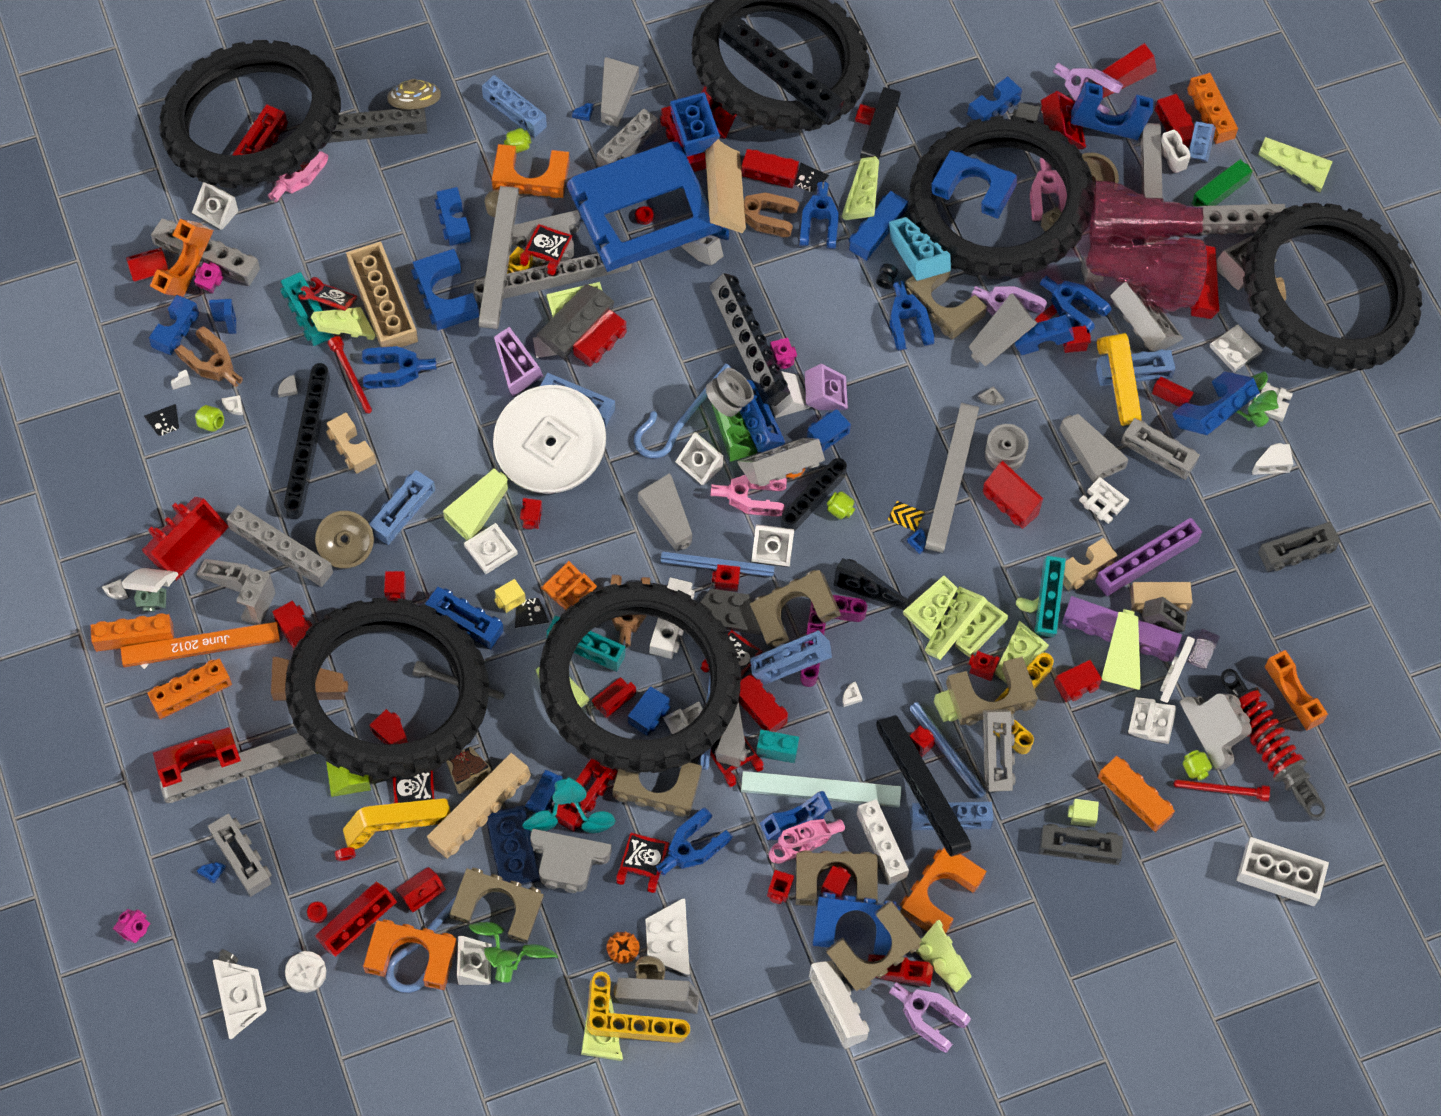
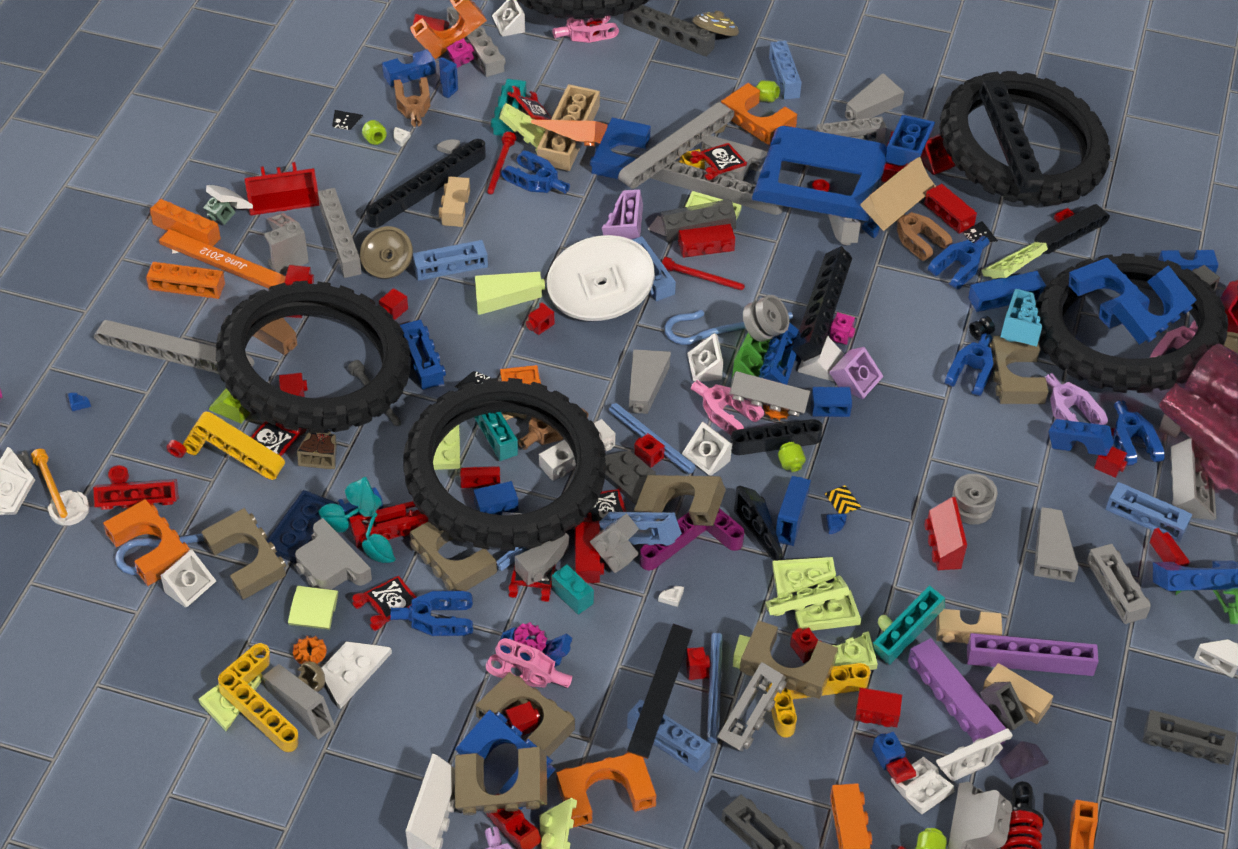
camera: 40 degrees right, 15 degrees down
(115, 590) = (203, 196): white tile -> none
(173, 759) = (155, 321): red arch -> none
(181, 381) = (380, 101): white tile -> none
(223, 828) = (95, 422): light grey brick -> none
(237, 946) = (40, 459): none -> light orange piece
(411, 300) = (582, 131): none -> orange wedge
(420, 889) = (203, 509): red panel -> none
(455, 229) = (667, 116): blue arch -> none
(478, 805) = (298, 479): tan brick -> none
(490, 548) = (487, 323): white plate -> none
(503, 958) = (206, 597): bright green plant -> none
(509, 596) = (469, 361): light yellow brick -> none
(583, 112) = (836, 103): blue tile -> none
(590, 383) = (671, 265): none -> red piece
(592, 909) = (313, 607): none -> yellowish green slope
(783, 683) = (614, 545): none -> light grey brick
(783, 815) = (525, 630): none -> dark pink gear
(783, 881) = (472, 690): red brick -> none
(807, 787) = (582, 647): light aqua tile -> none
(882, 553) = (792, 510): none -> blue slope
(882, 842) = (590, 715): white brick -> none
(952, 478) = (906, 494): light grey beam -> none
(991, 397) = (996, 460): light grey tile -> none
(1001, 331) = (1044, 412): light grey slope -> none
(1037, 163) = (1143, 324): none -> blue arch
(1083, 812) = (788, 811): yellowish green brick -> none
(1107, 496) = (1036, 591): white plate -> none
(1110, 710) = (887, 749): none -> blue brick
(1123, 376) = (1127, 504): yellow beam -> none
(1123, 657) = (939, 708): yellowish green slope -> none
(1131, 720) = (901, 770): none -> red tile

